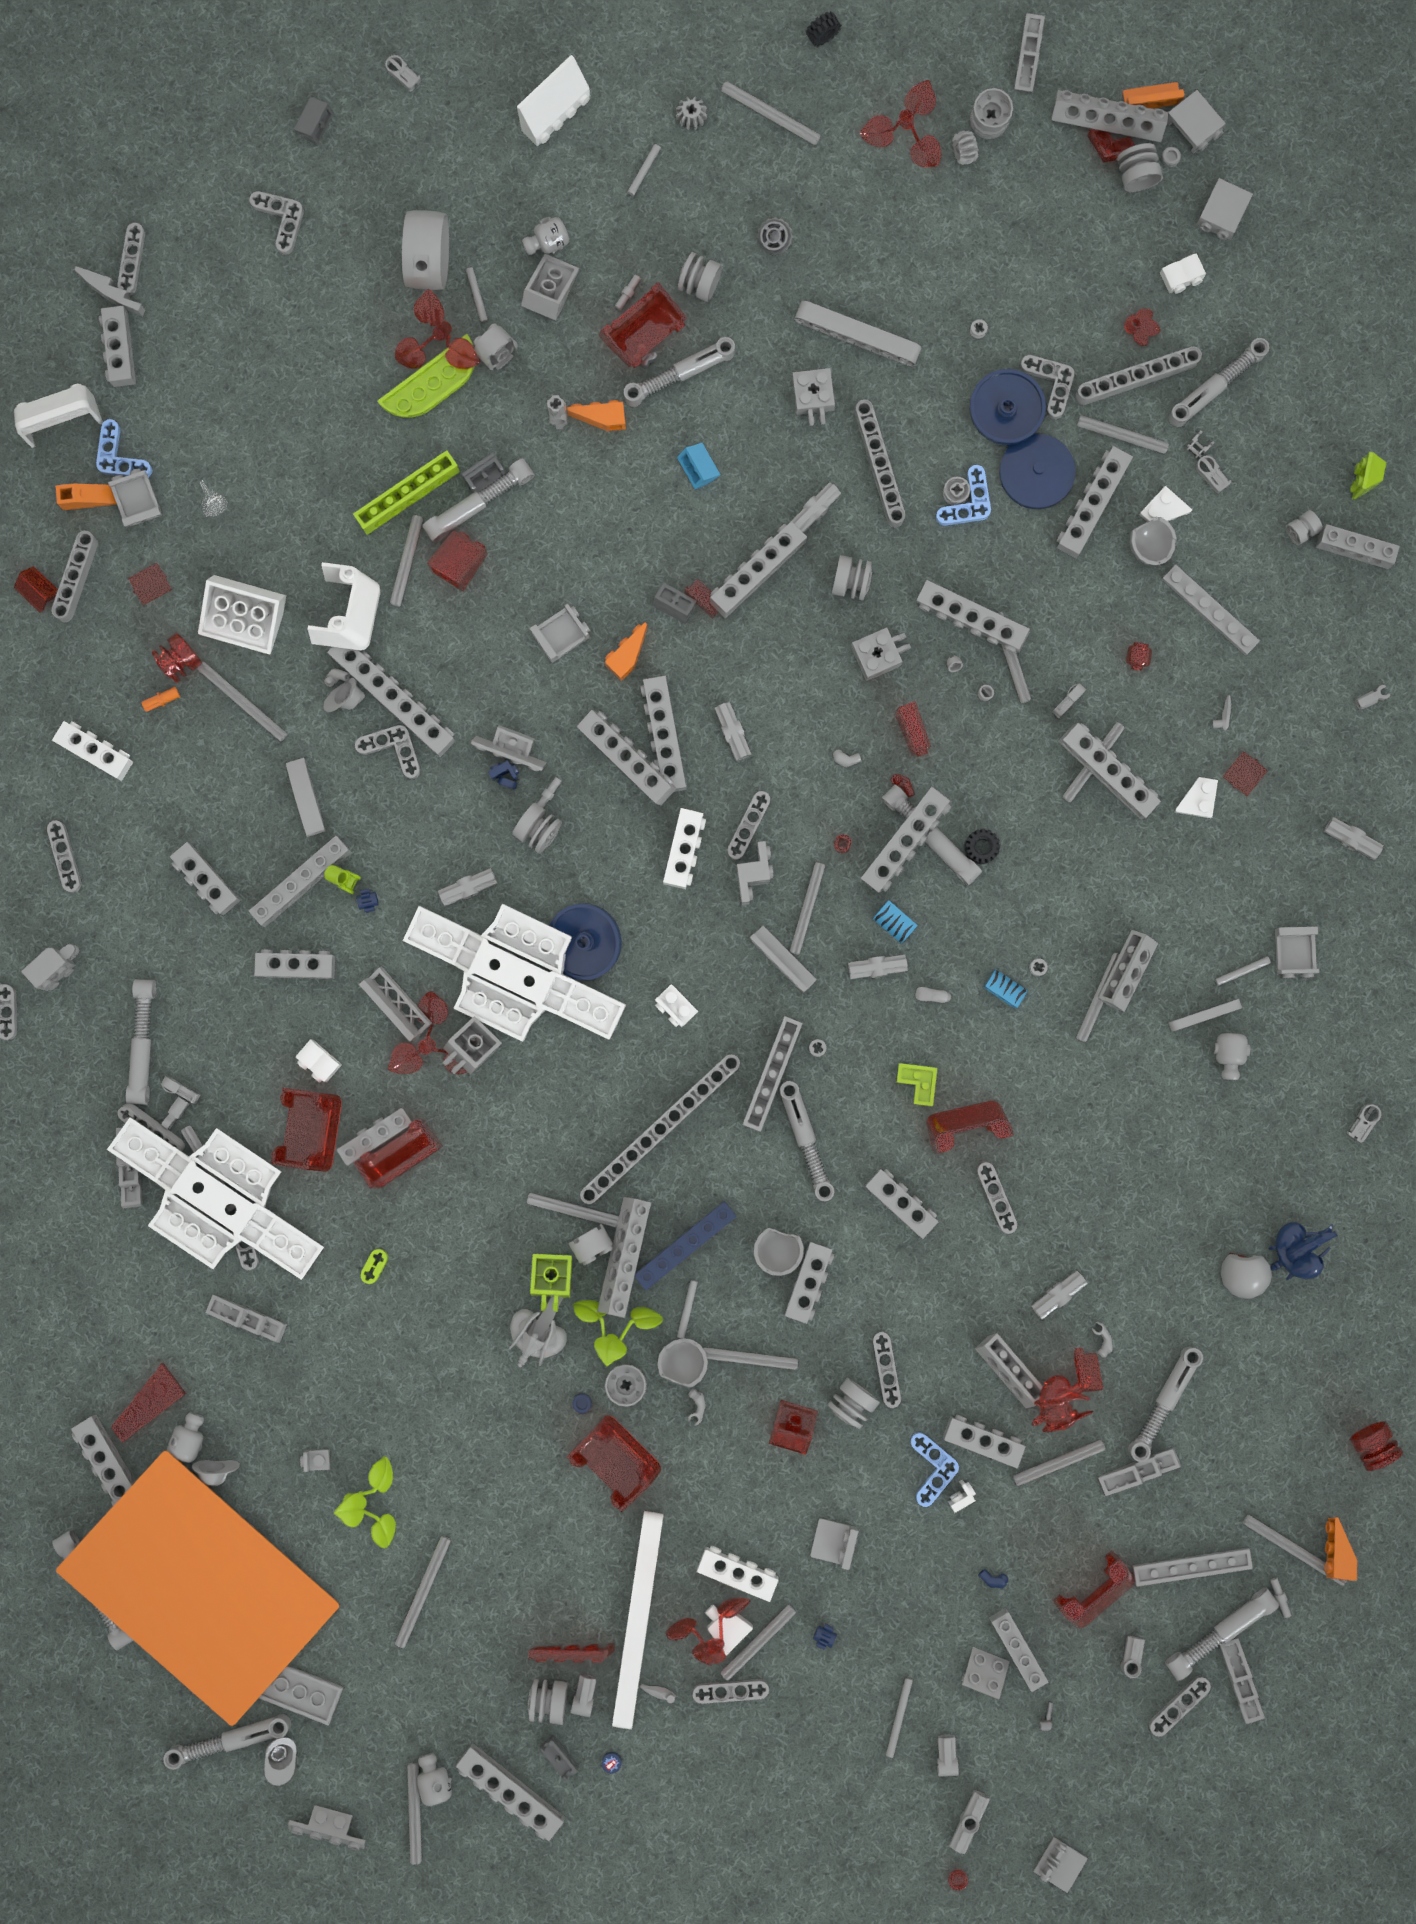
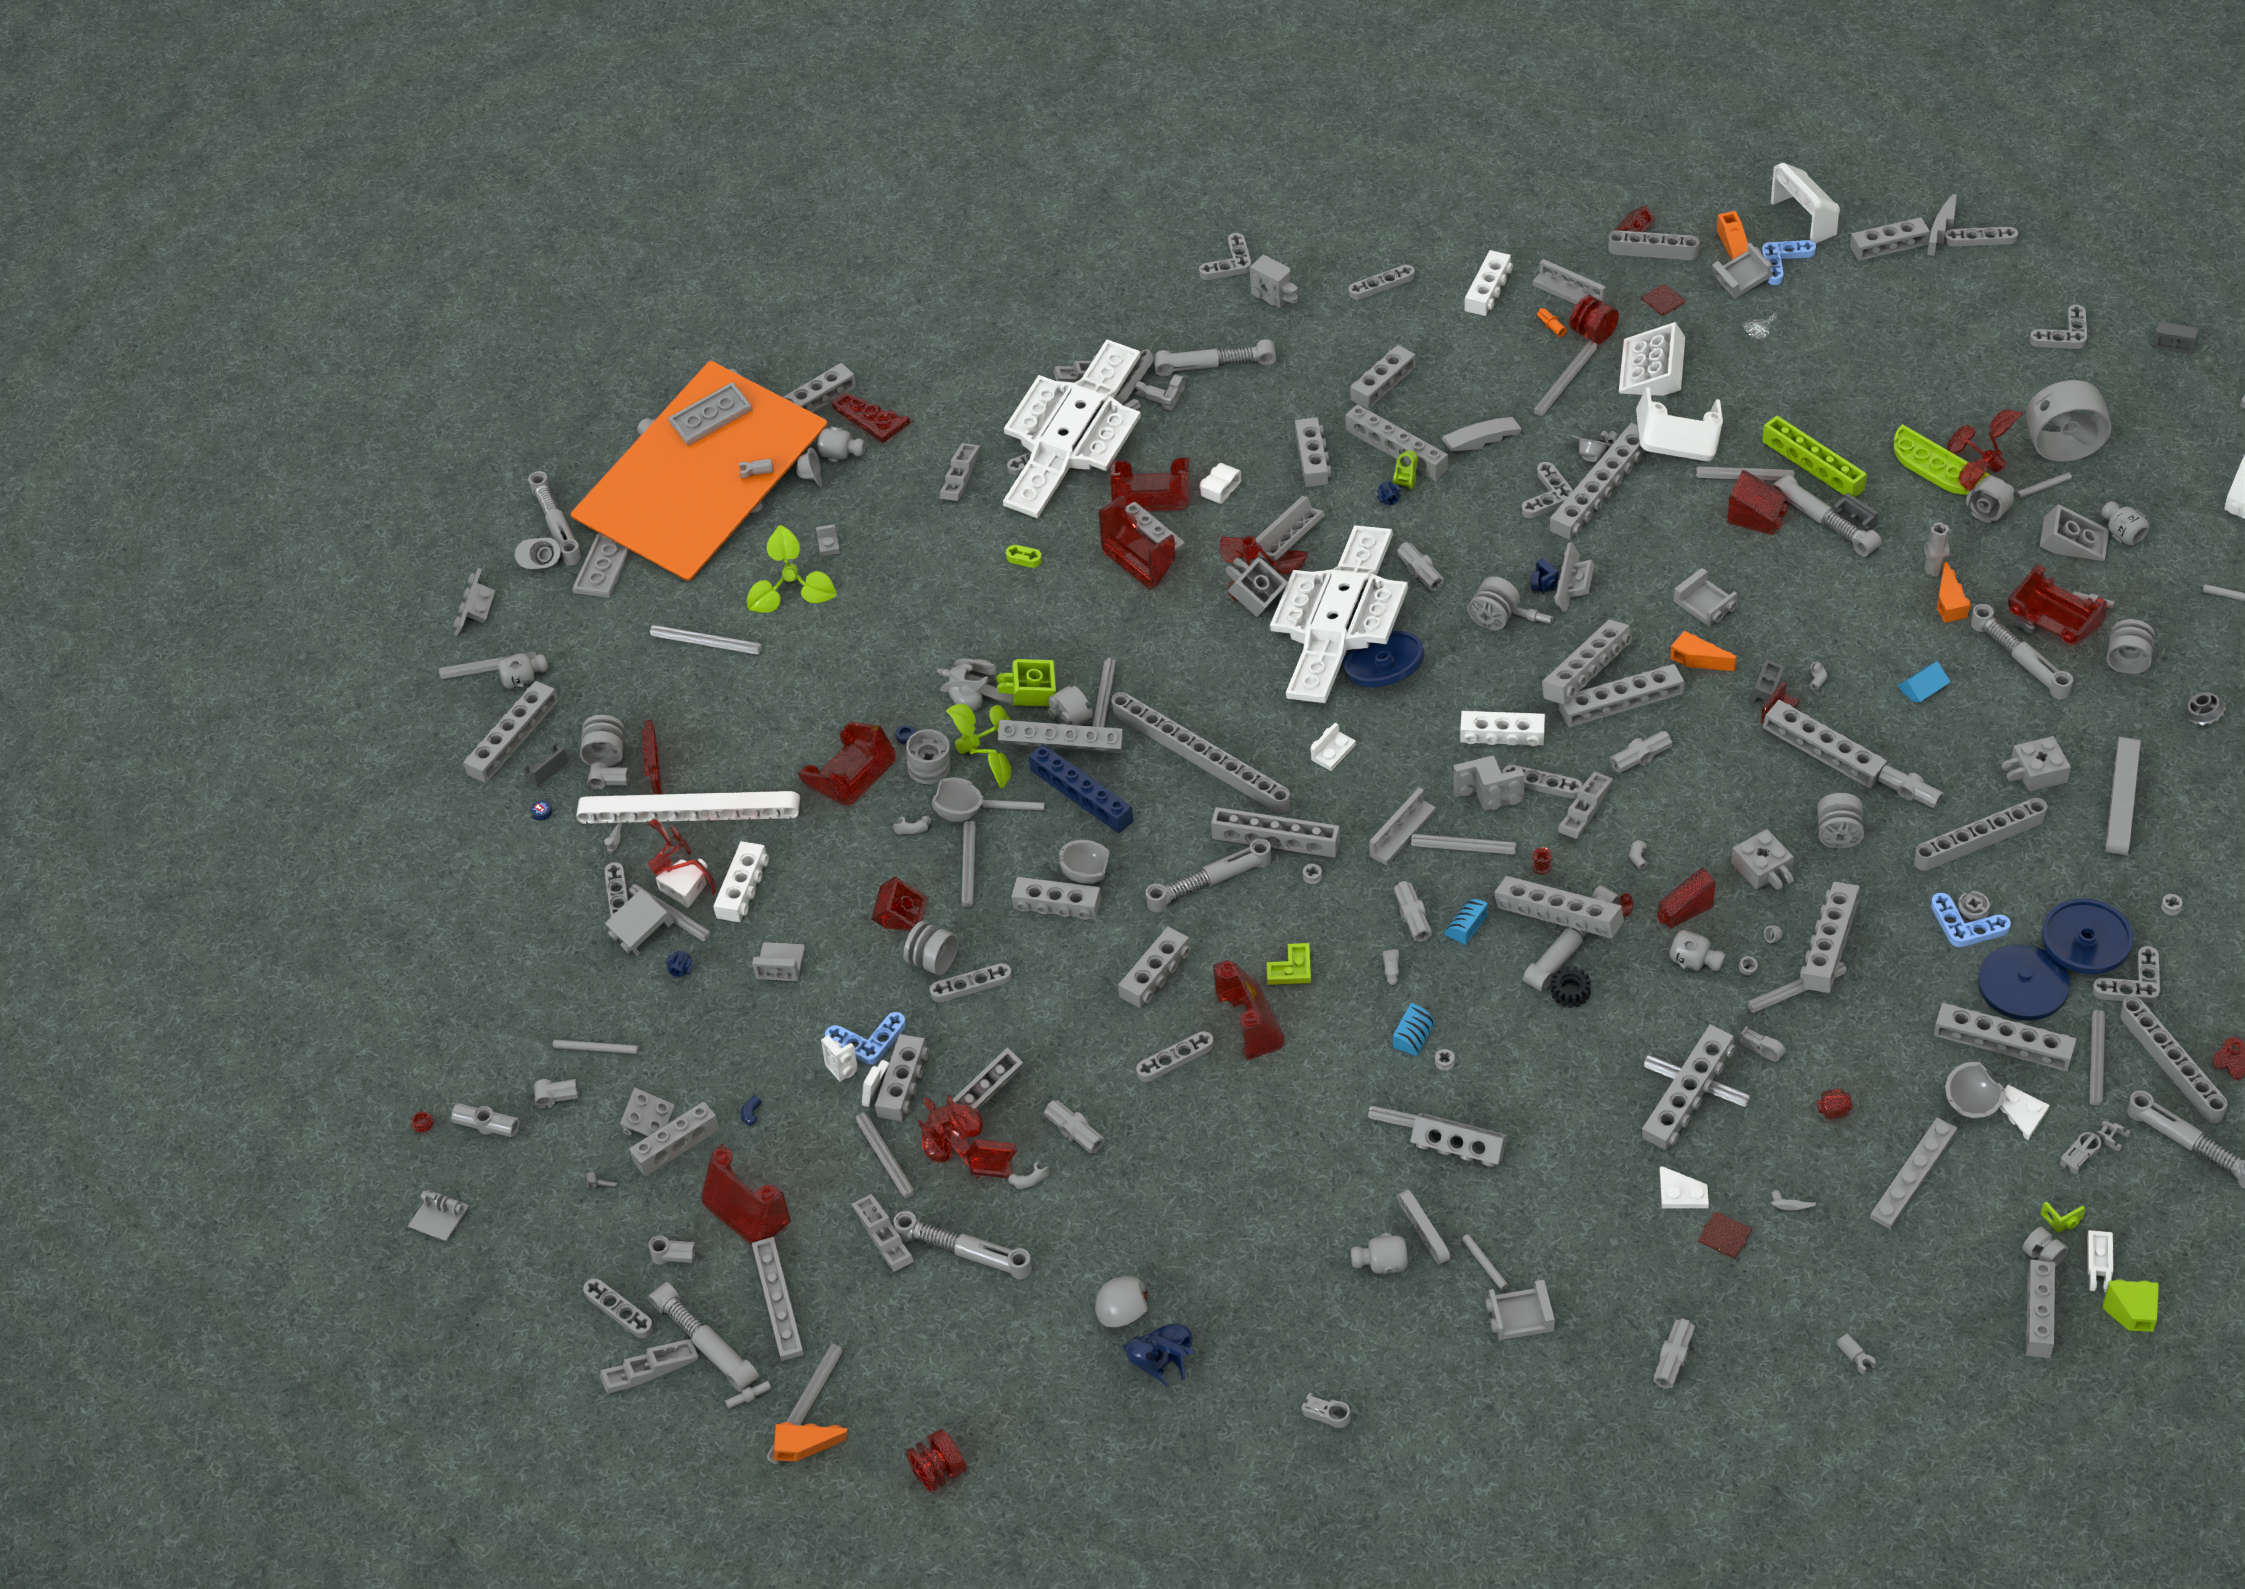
camera: 85 degrees right, 35 degrees down
(116, 671) = (1565, 289): none -> light grey fence
(131, 1573) = (710, 414): none -> light grey tile
(215, 1527) = (756, 468): none -> light grey bar
(671, 554) = (1819, 675): none -> light grey arm
(772, 1673) = (637, 921): none -> light grey panel
(783, 792) = (1585, 805): none -> light grey slope
(966, 734) = (1694, 951): none -> light grey piece
(991, 1467) = (873, 1082): none -> white tile
(1279, 502) = (2061, 1223): none -> lime bracket
(1315, 488) = (2099, 1257): none -> white hinge

